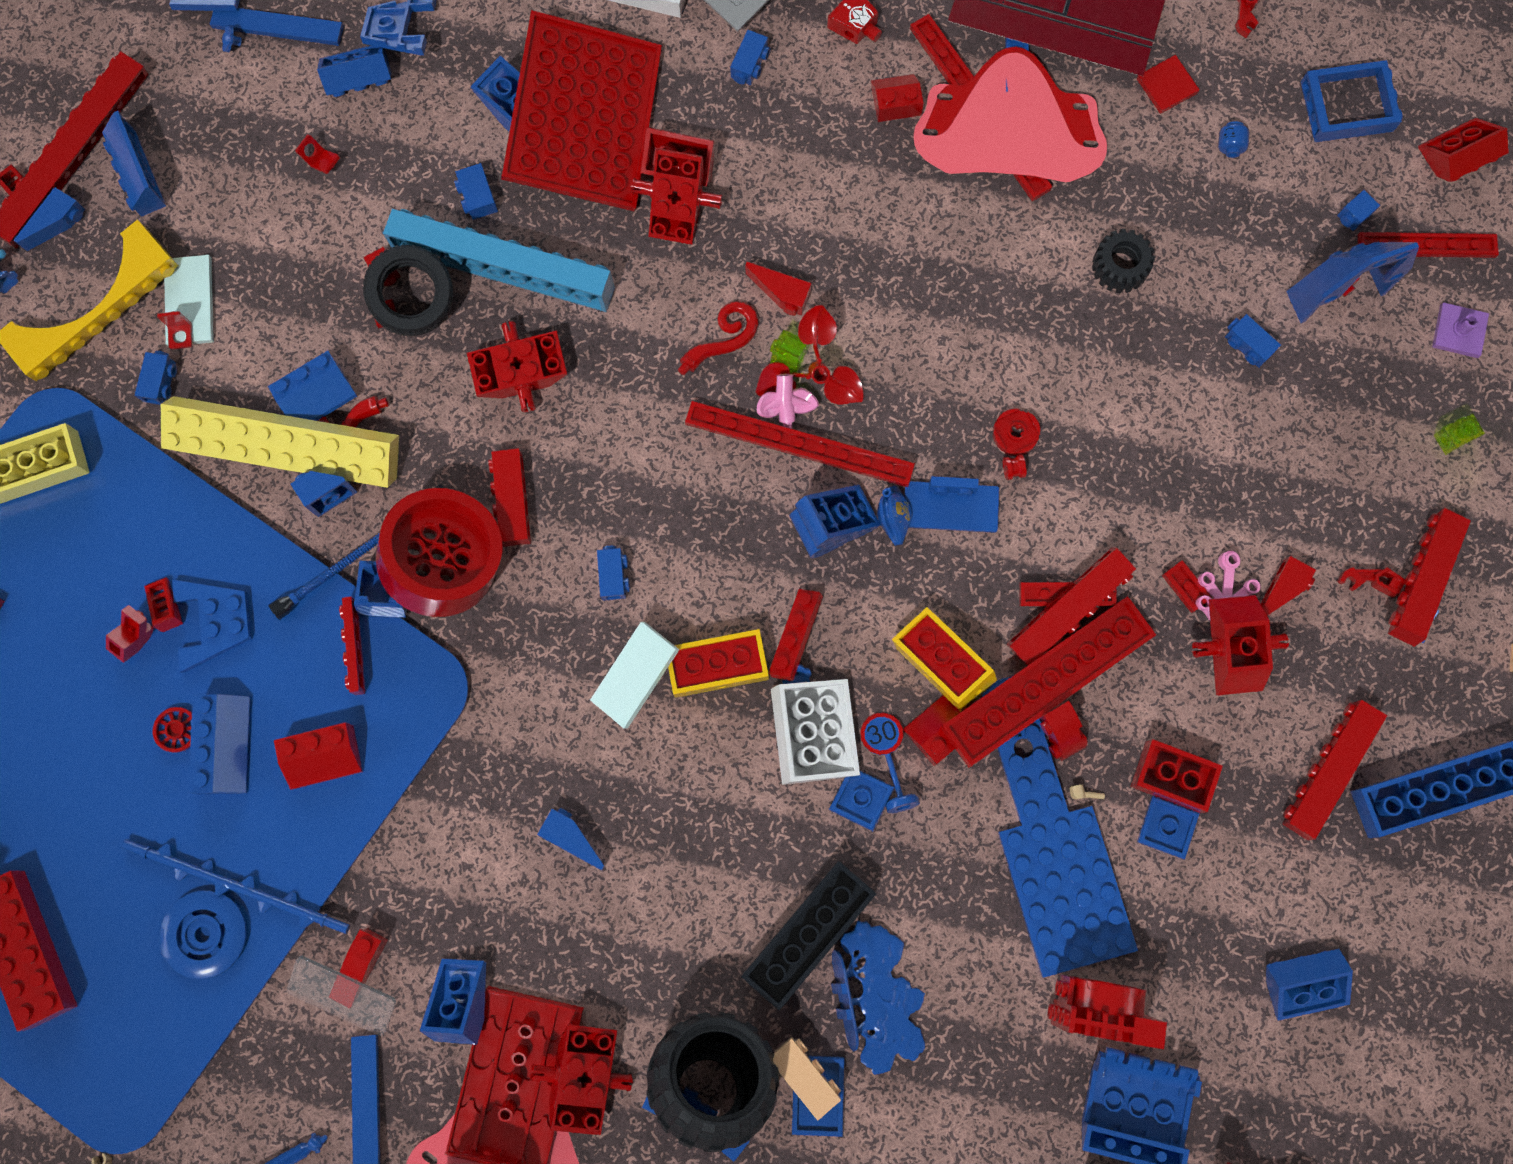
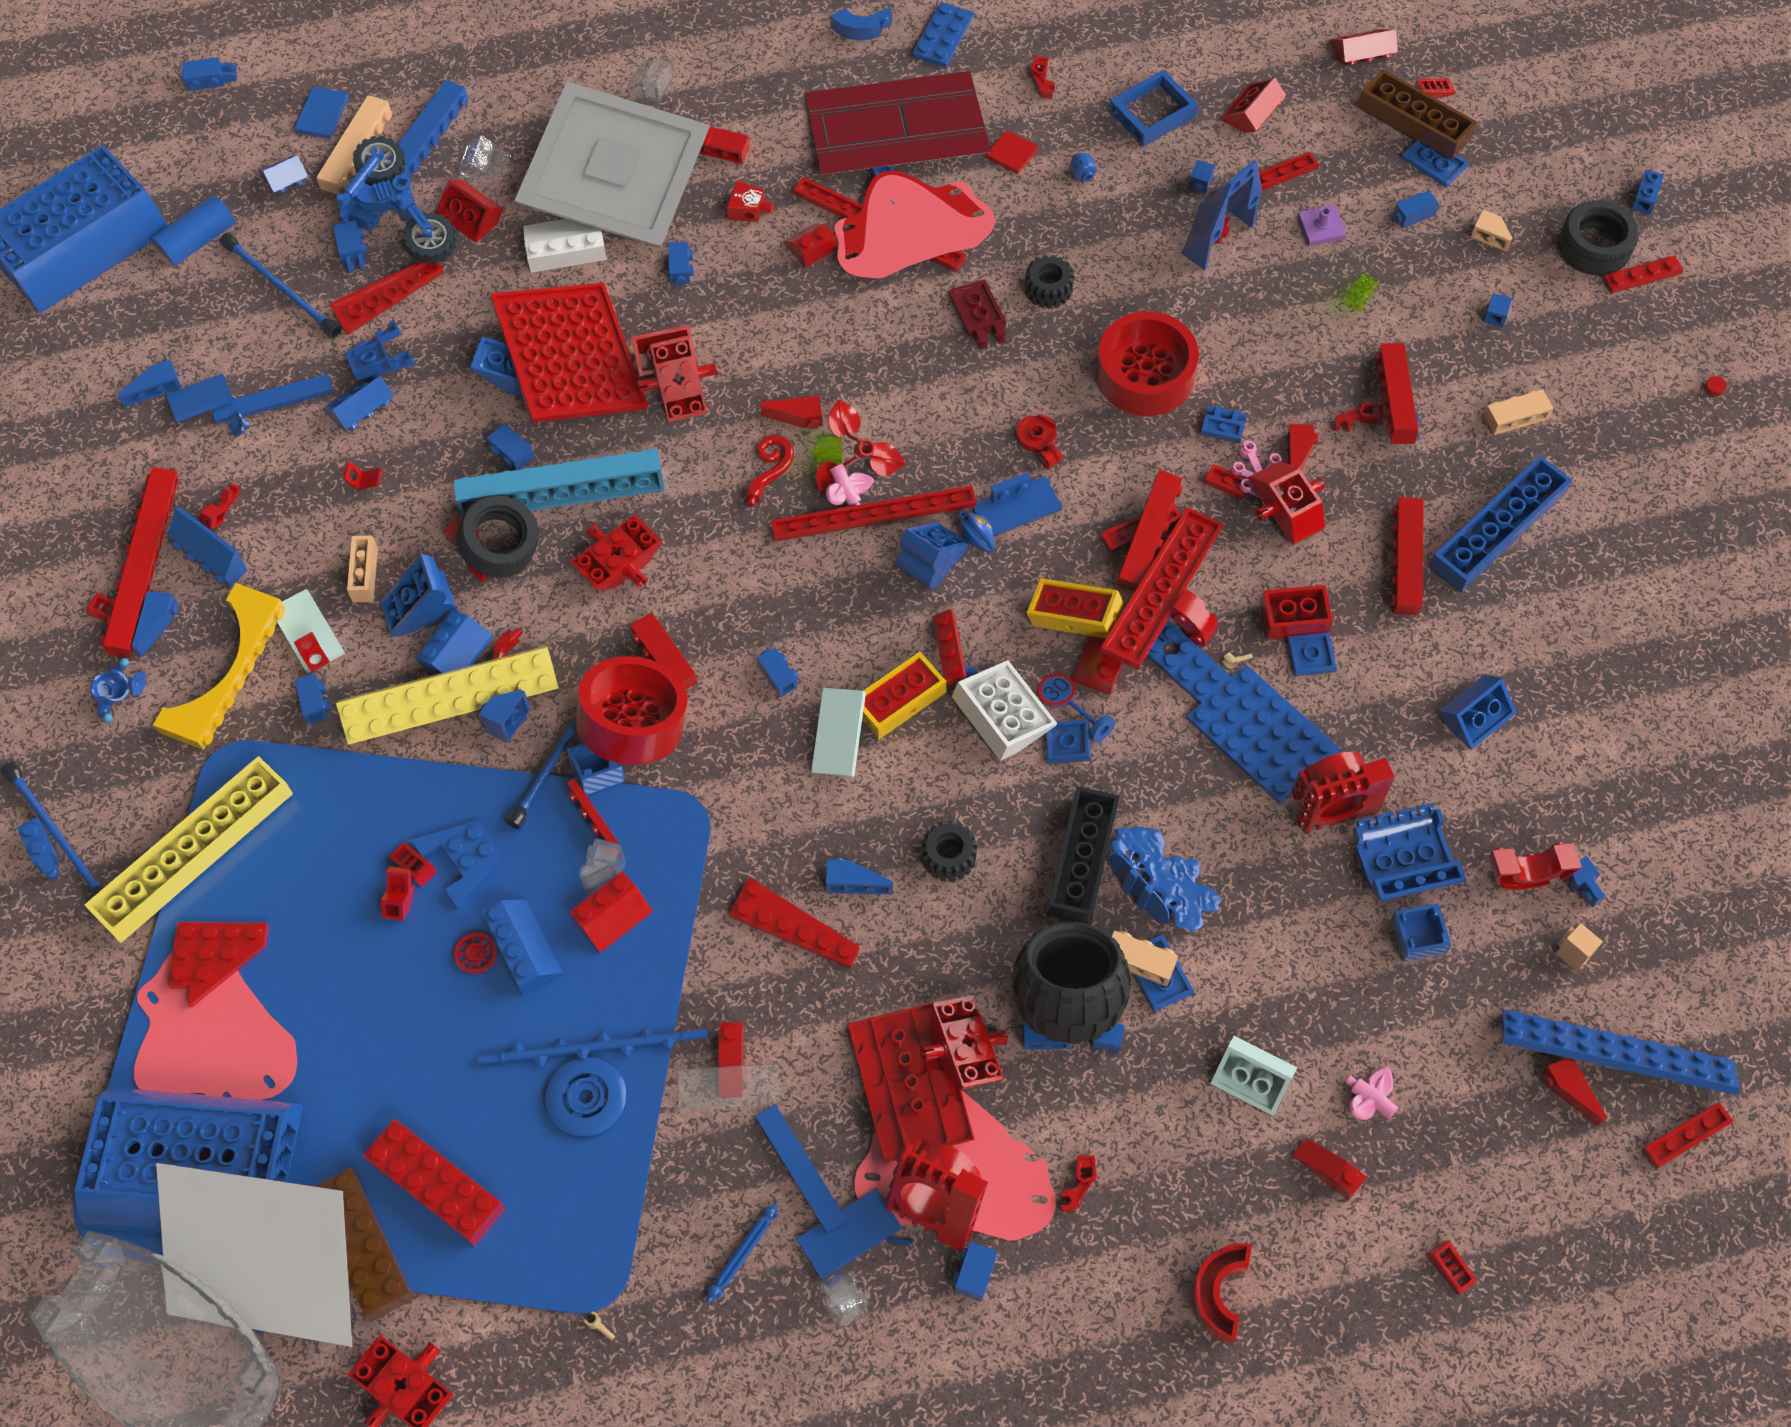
camera: 30 degrees left, 15 degrees down
(160, 131) = (214, 515): none -> red piece
(267, 260) = (362, 569): none -> light nougat brick
(303, 322) = (418, 598): none -> blue brick
(330, 705) = (603, 864): none -> clear slope
(456, 1002) = (830, 1042): blue slope -> none
(478, 839) = (778, 917): none -> red wing
(656, 865) = (946, 867): none -> black tyre
(1031, 260) = (979, 312): none -> dark red tile
(1200, 382) = (1149, 343): none -> red wheel
(1216, 521) = (1221, 427): none -> blue plate
(1251, 340) = (1175, 294): blue brick -> none

